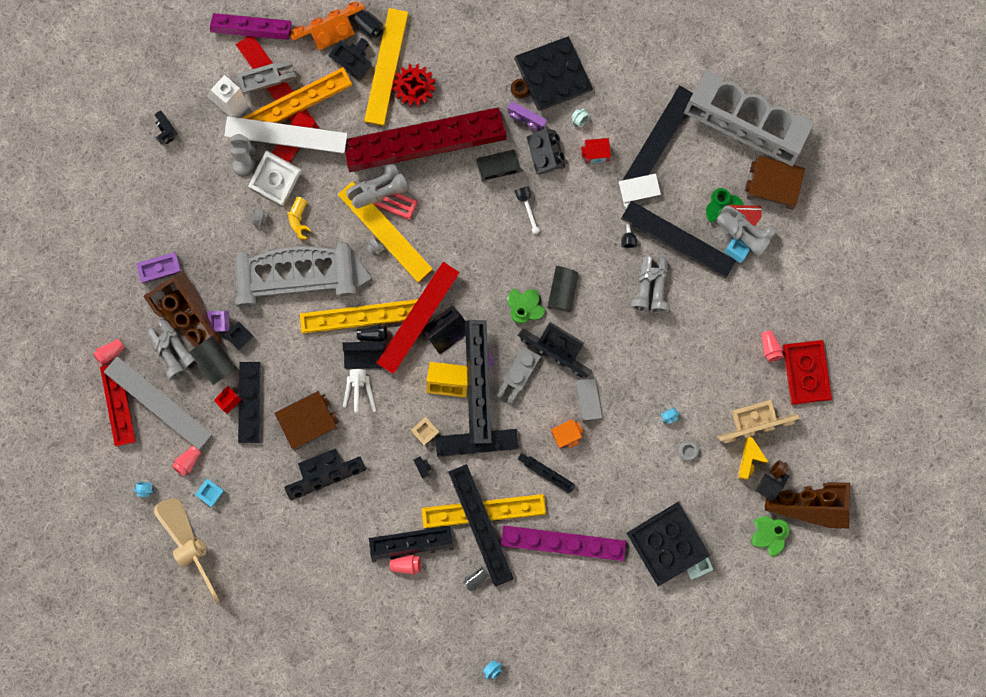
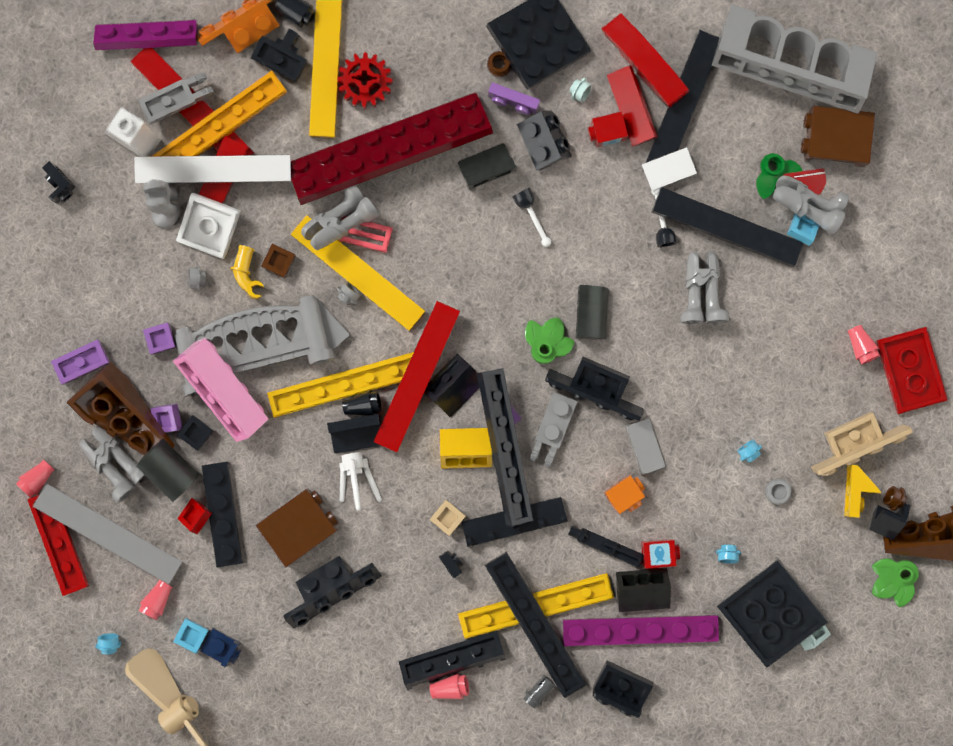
camera: 10 degrees left, 5 degrees up
(223, 259) = (159, 338): none -> medium lavender plate
(231, 506) = (221, 647): none -> dark blue bracket
(264, 304) = (221, 389): none -> bright pink brick
(325, 213) = (278, 260): none -> reddish brown plate
(541, 586) = (621, 689): none -> black bracket
(570, 511) = (643, 590): none -> pearl dark grey brick
(587, 484) = (660, 553): none -> brick
(618, 135) = (632, 104): none -> tile
(633, 102) = (645, 60): none -> red slope
(641, 493) = (728, 554): none -> medium azure plate

